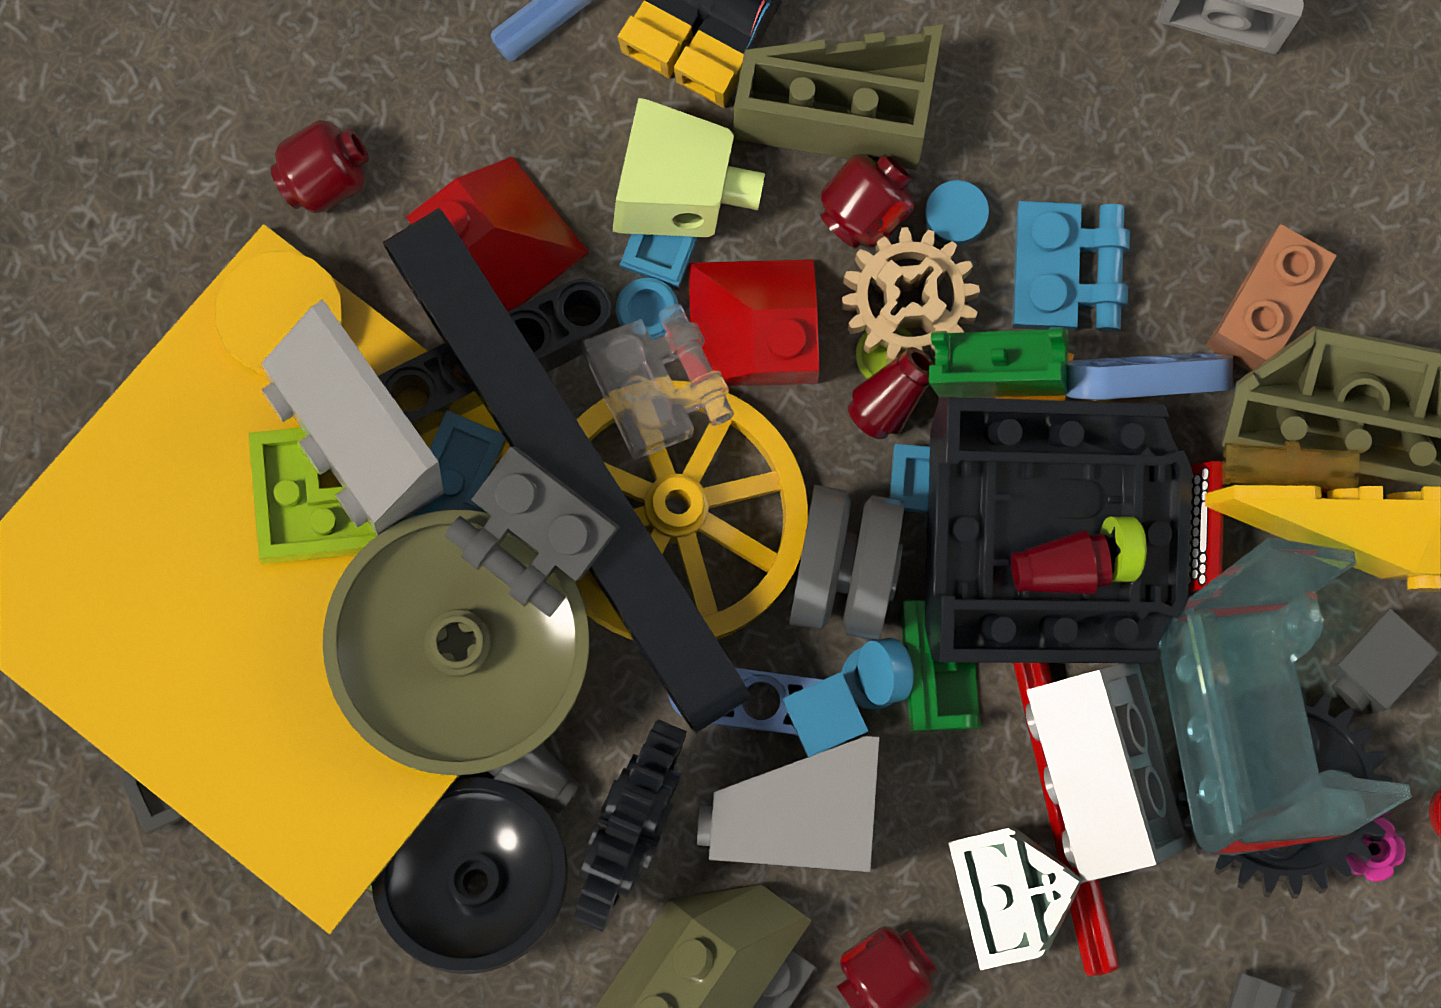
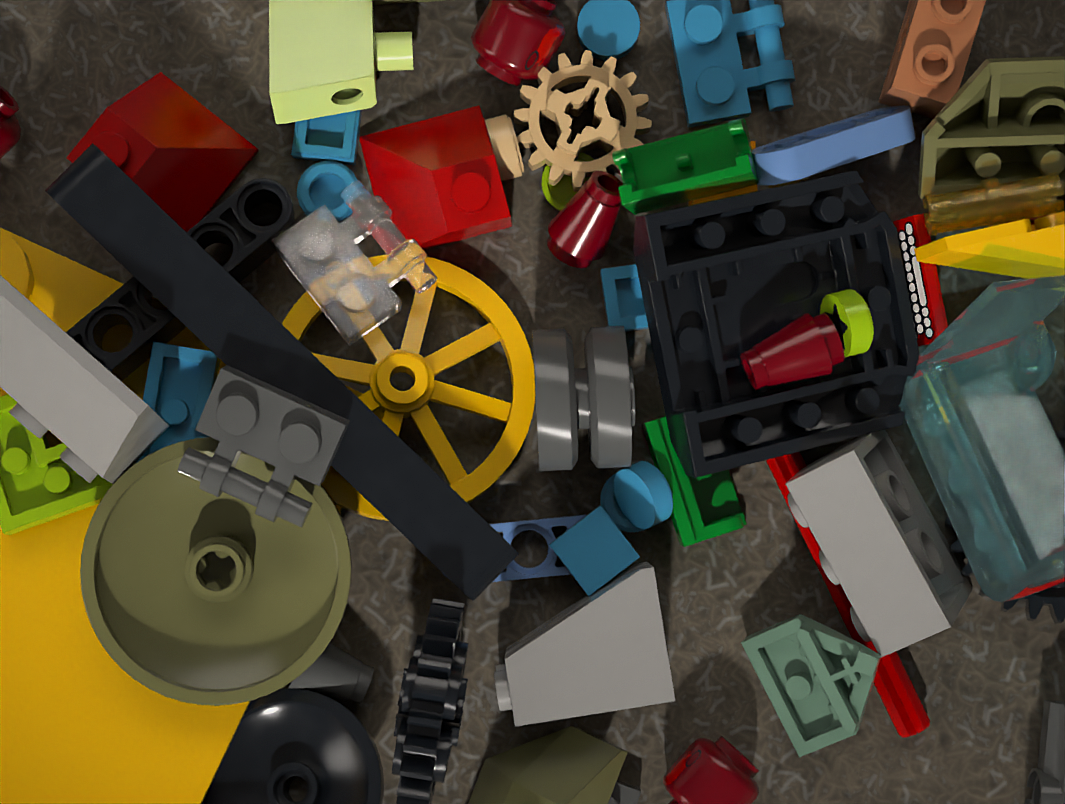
camera: 15 degrees left, 5 degrees up
(829, 304) = (505, 147): none -> tan tile

